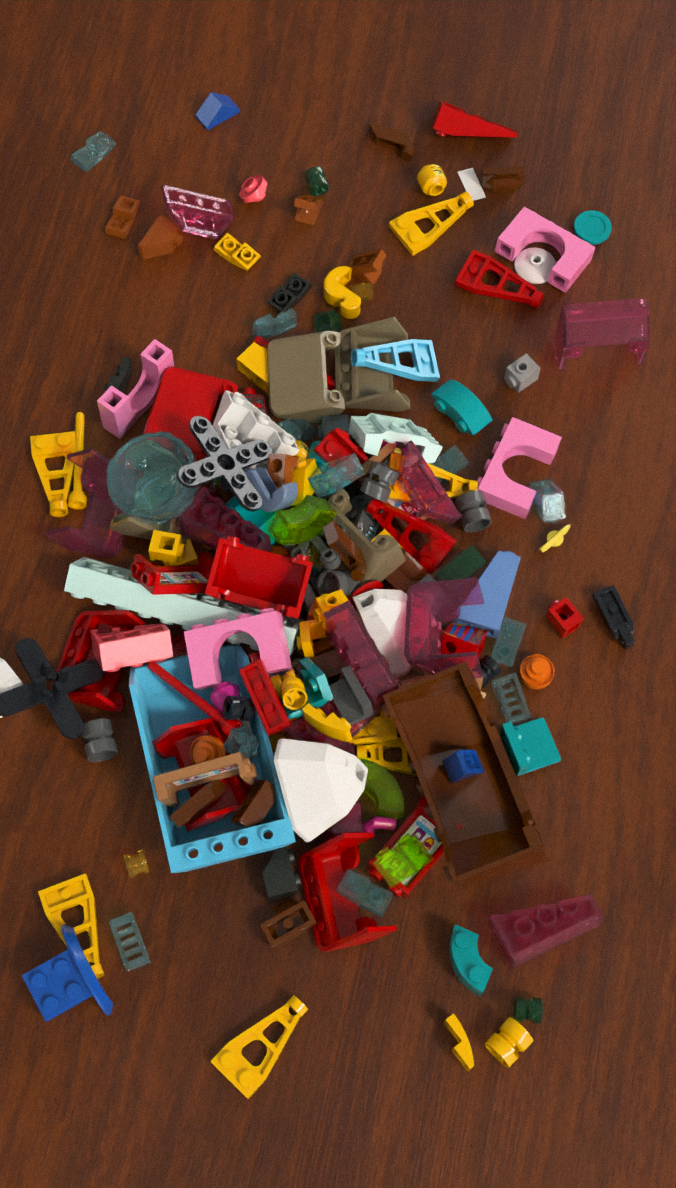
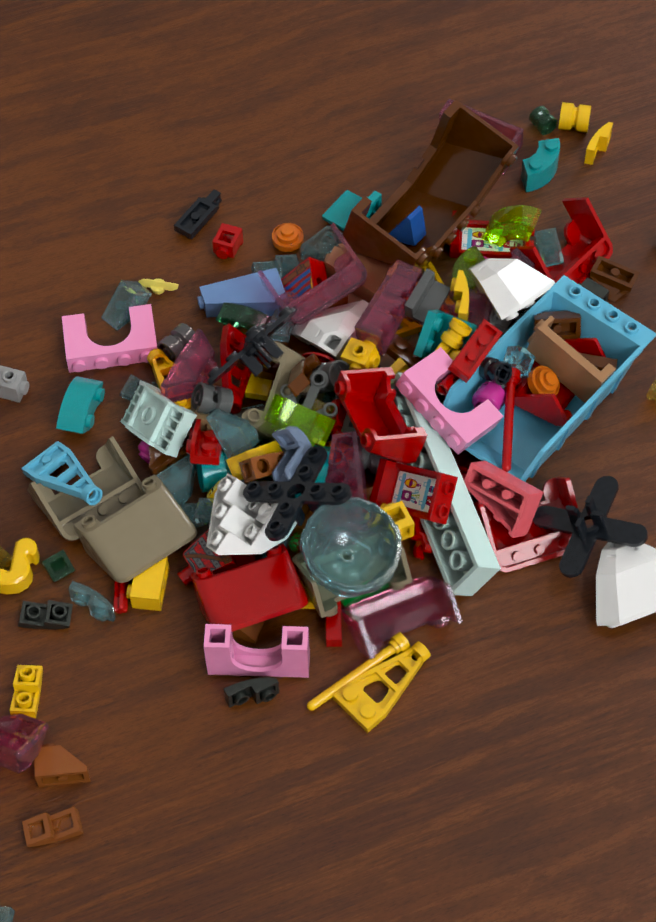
camera: 120 degrees left, 10 degrees down
(99, 741) = (593, 469): dark grey wheel -> none
(389, 506) = (255, 341): none -> black piece

